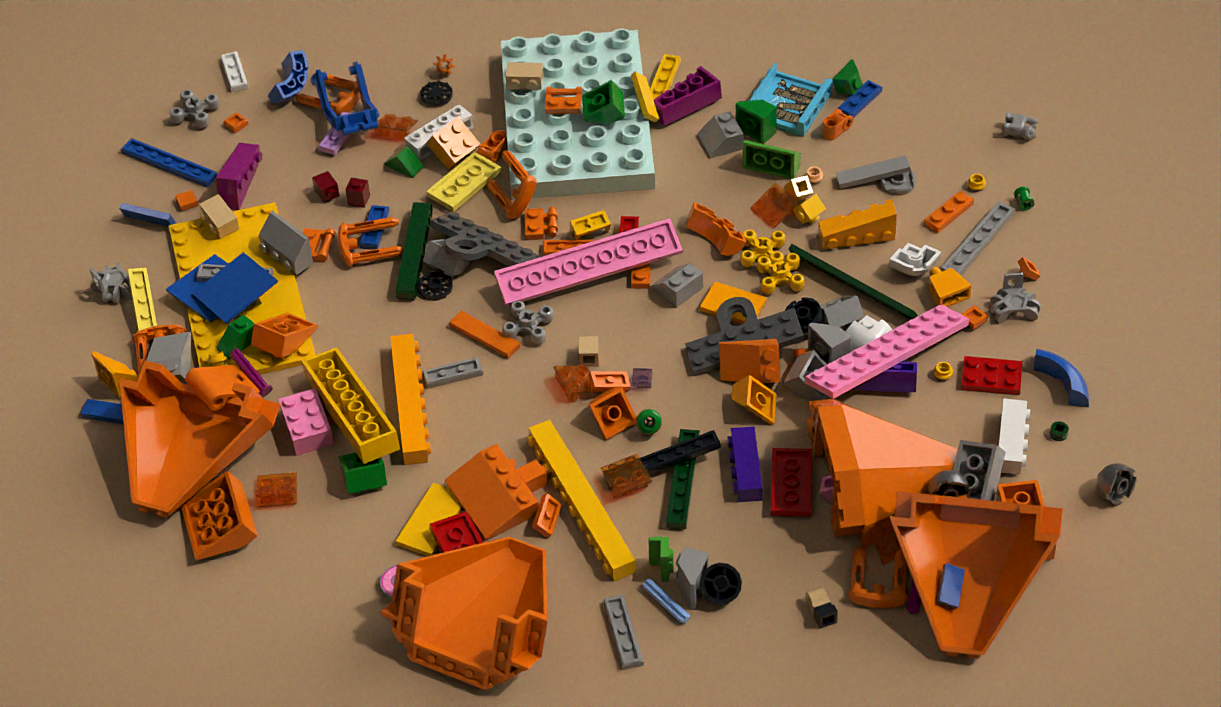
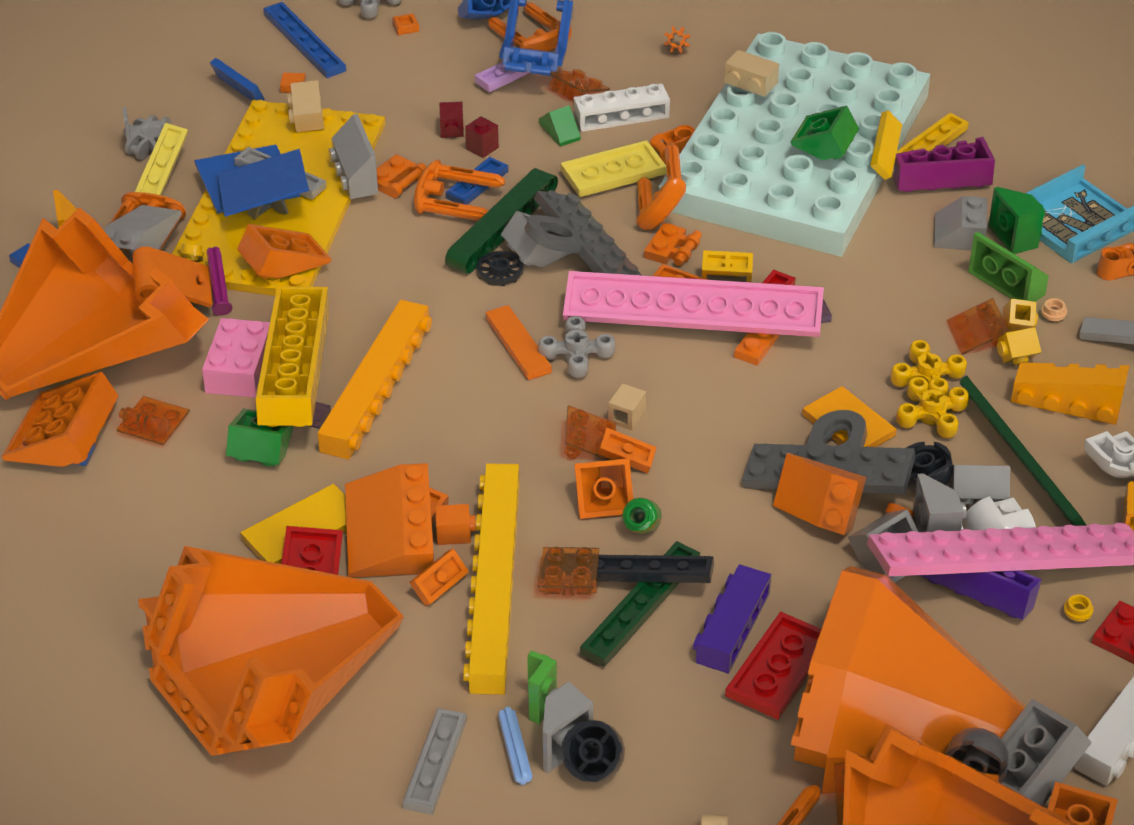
camera: 25 degrees right, 5 degrees down
(236, 336) = (228, 234): green slope -> none
(237, 174) = (361, 74): magenta wedge -> none
(436, 93) = (650, 68): black wheel -> none
(452, 372) = (449, 370): light grey tile -> none
(453, 143) = (625, 120): brick -> none
(563, 105) = (778, 119): orange plate -> none
(642, 378) = (672, 463): plate -> none
(679, 284) = (795, 374): light grey slope -> none
(716, 230) = (882, 325): orange brick -> none
(755, 398) = (799, 543): light orange slope -> none

